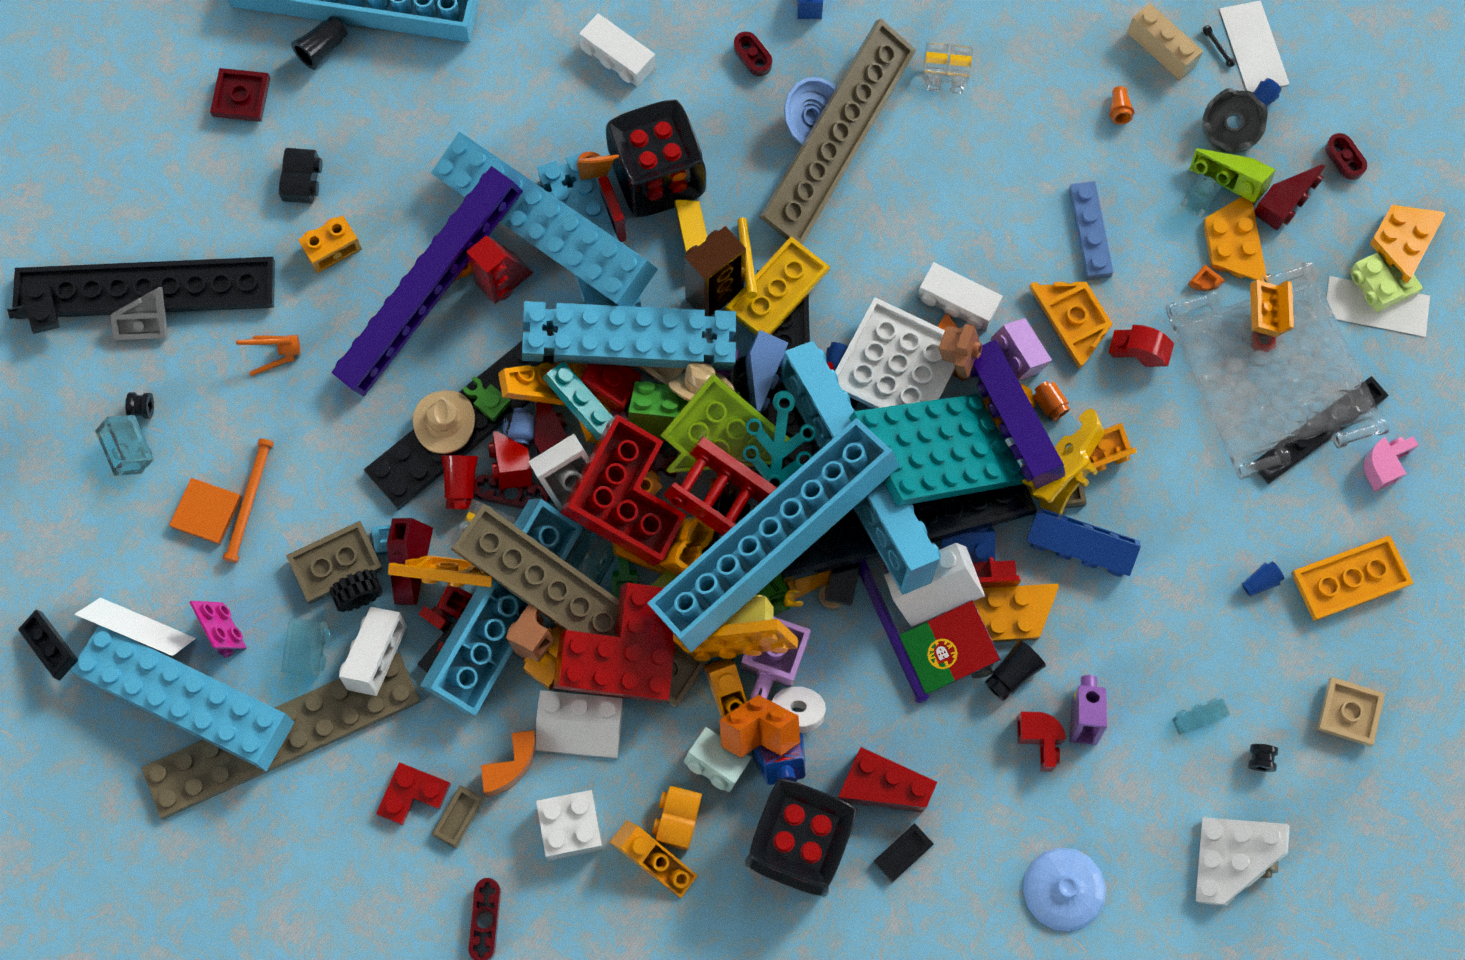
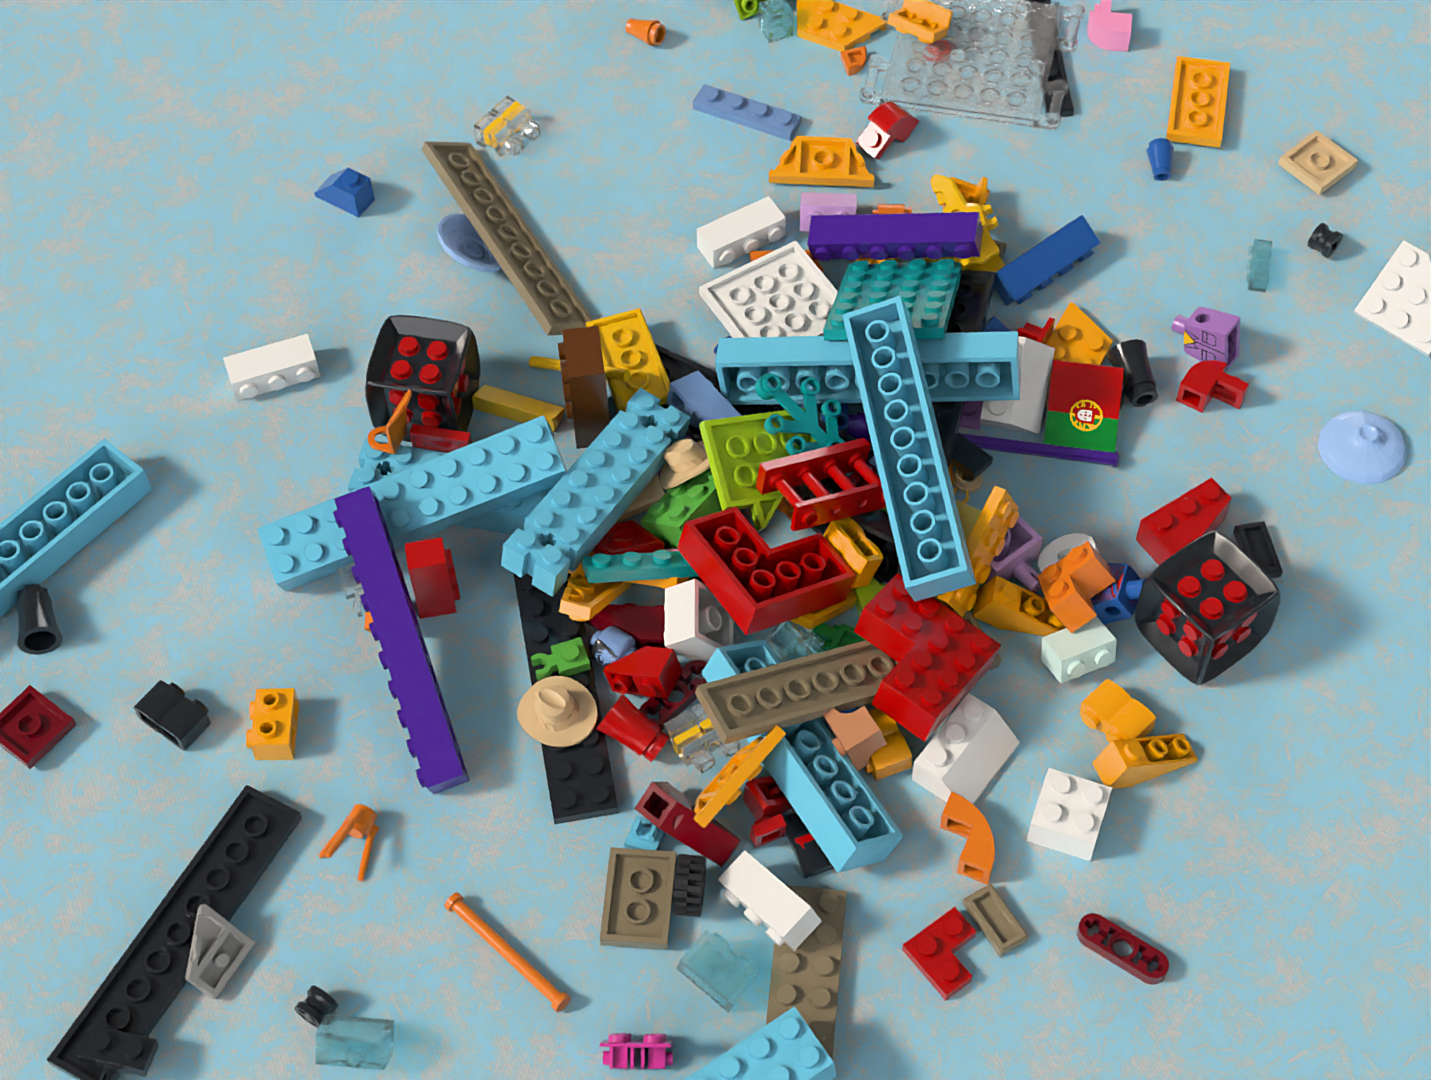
camera: 55 degrees left, 15 degrees down
(205, 511) = (488, 1002): orange tile -> none
(754, 55) = (368, 264): dark red plate -> none
(961, 348) = (804, 240): nougat brick -> none

